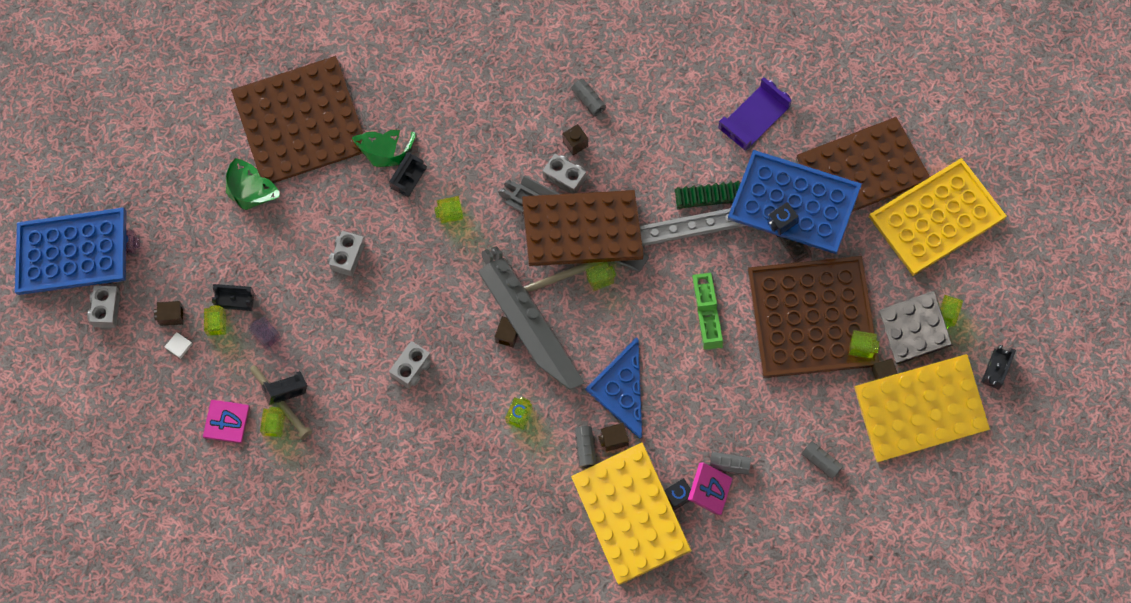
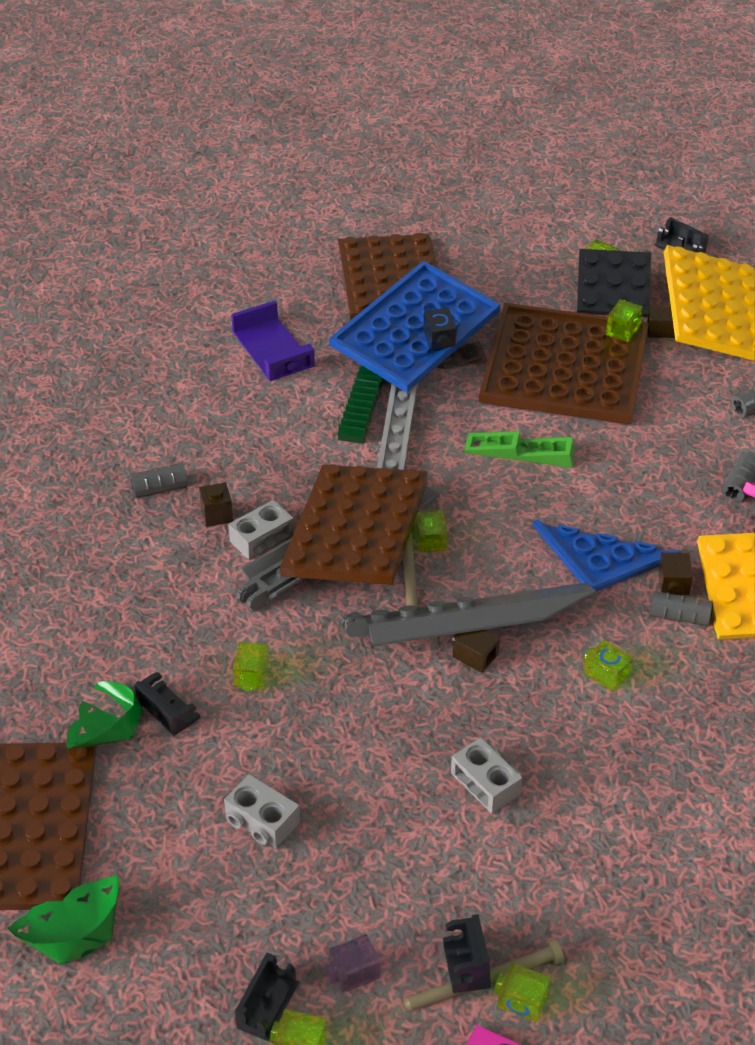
camera: 75 degrees left, 25 degrees down
(937, 216) = (480, 241): yellow plate -> none

